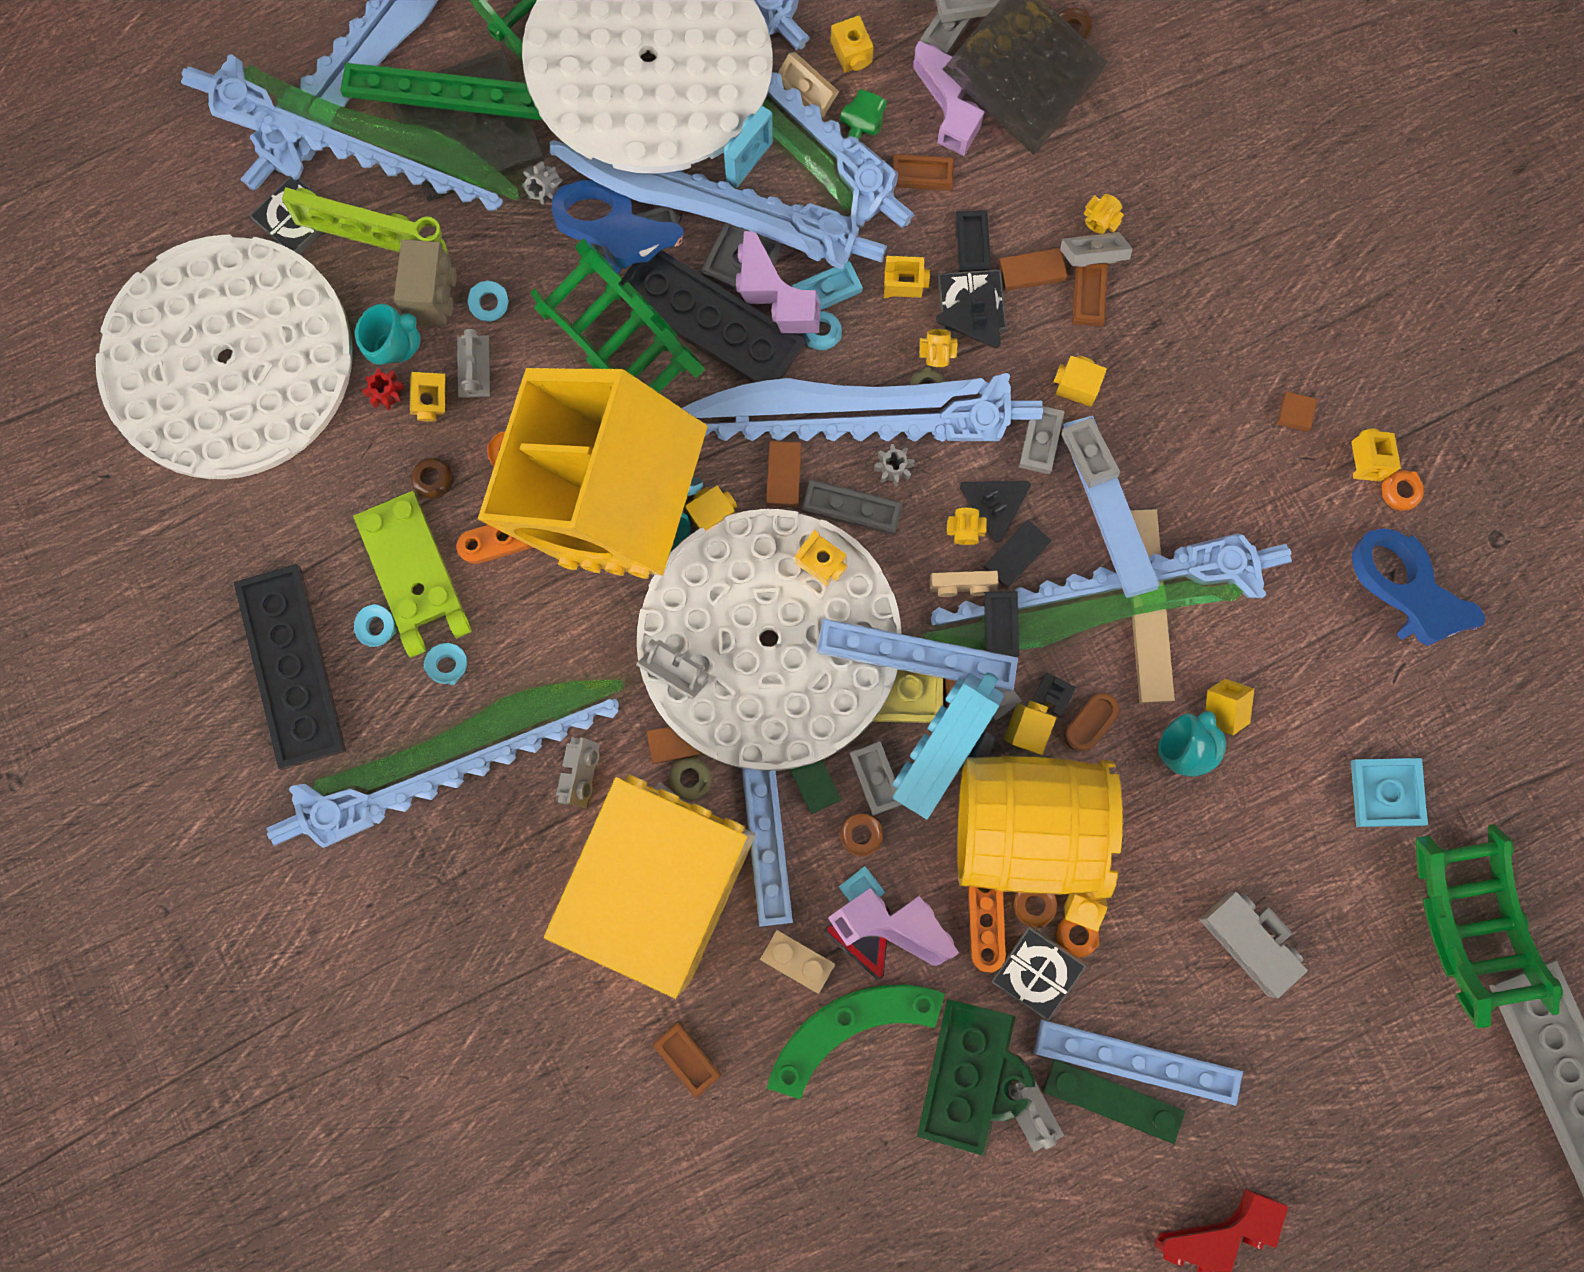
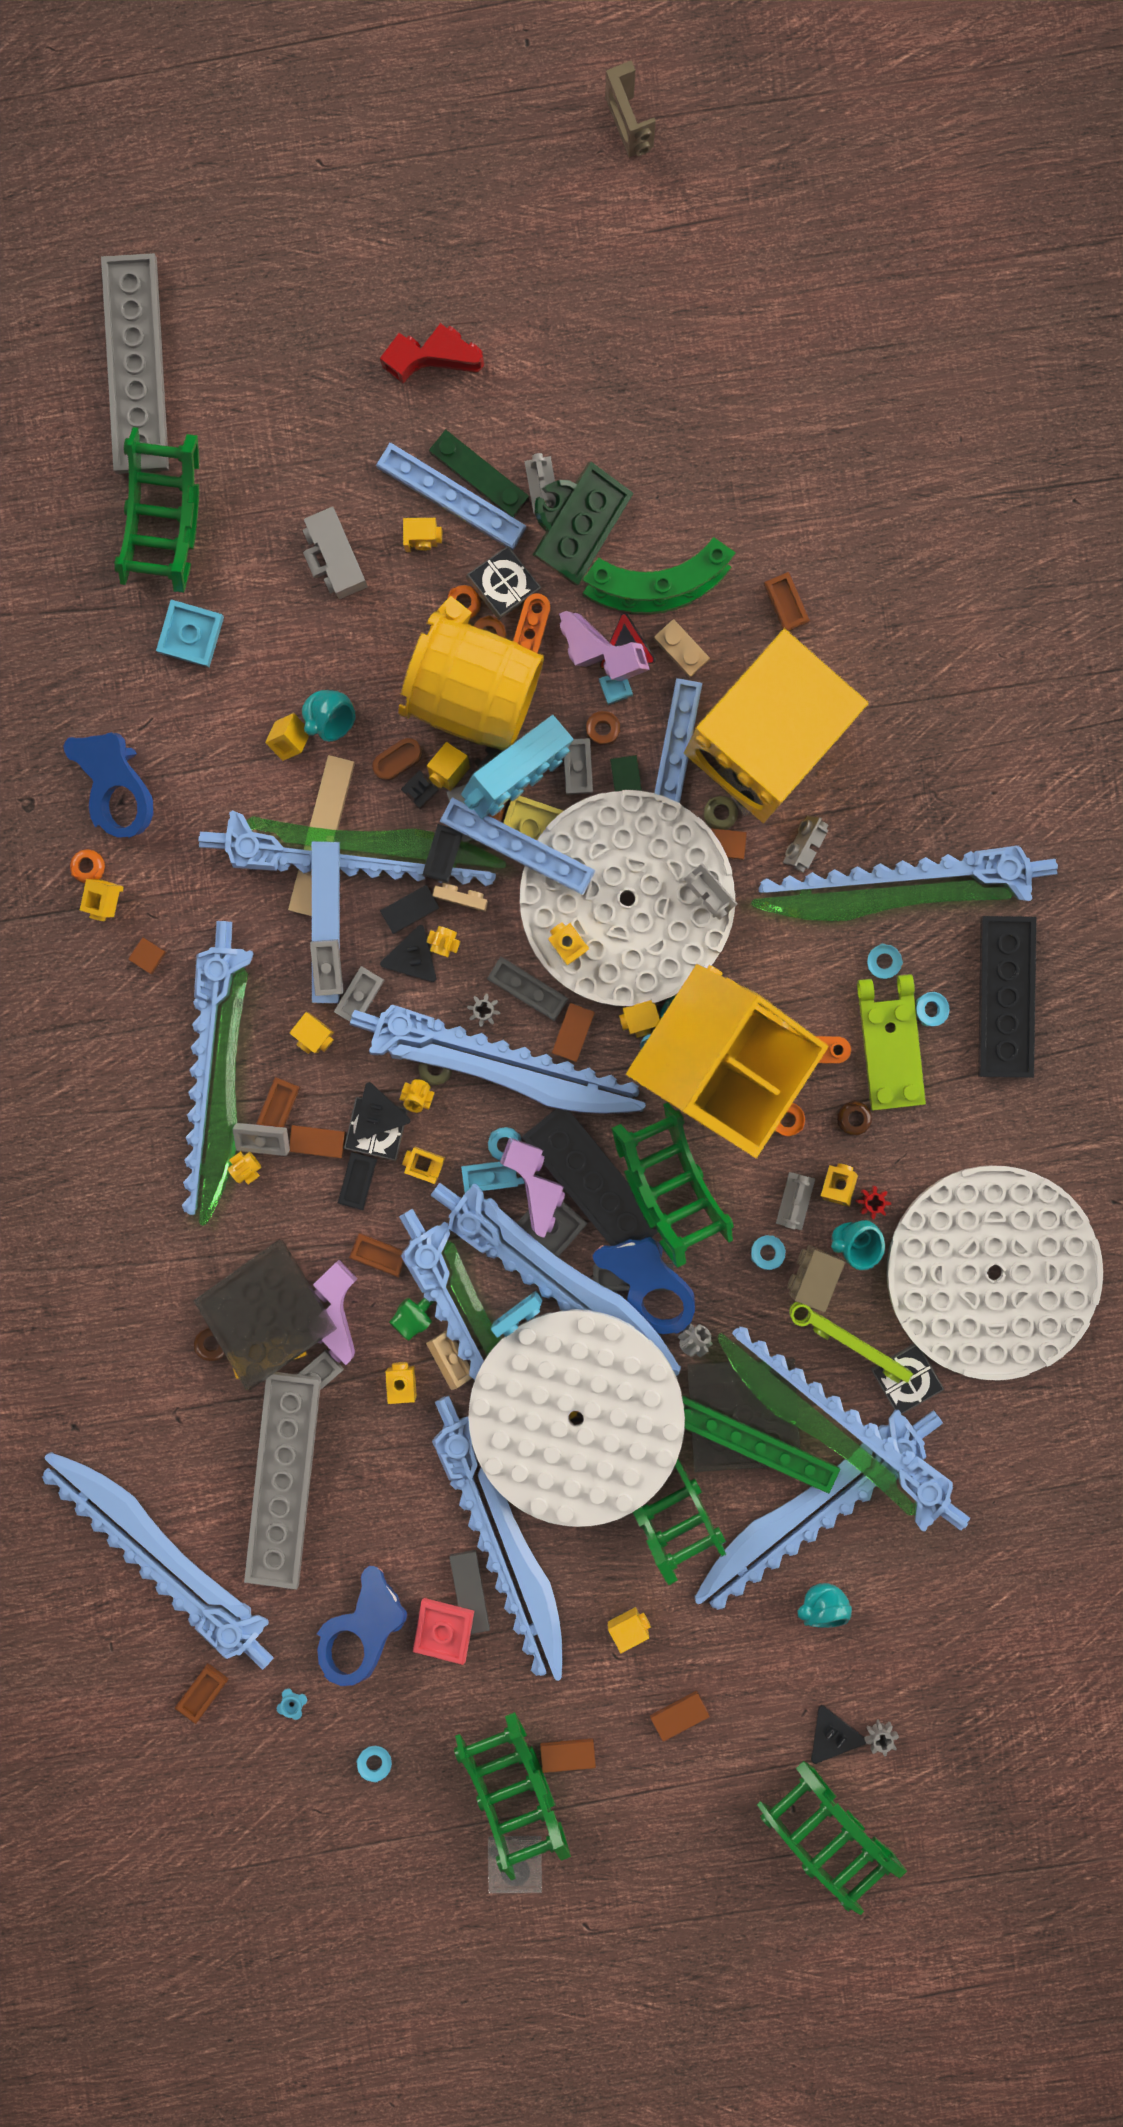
camera: 165 degrees left, 10 degrees up
(1158, 1001) = (421, 533): none -> yellow brick
(1211, 401) = (213, 986): none -> piece

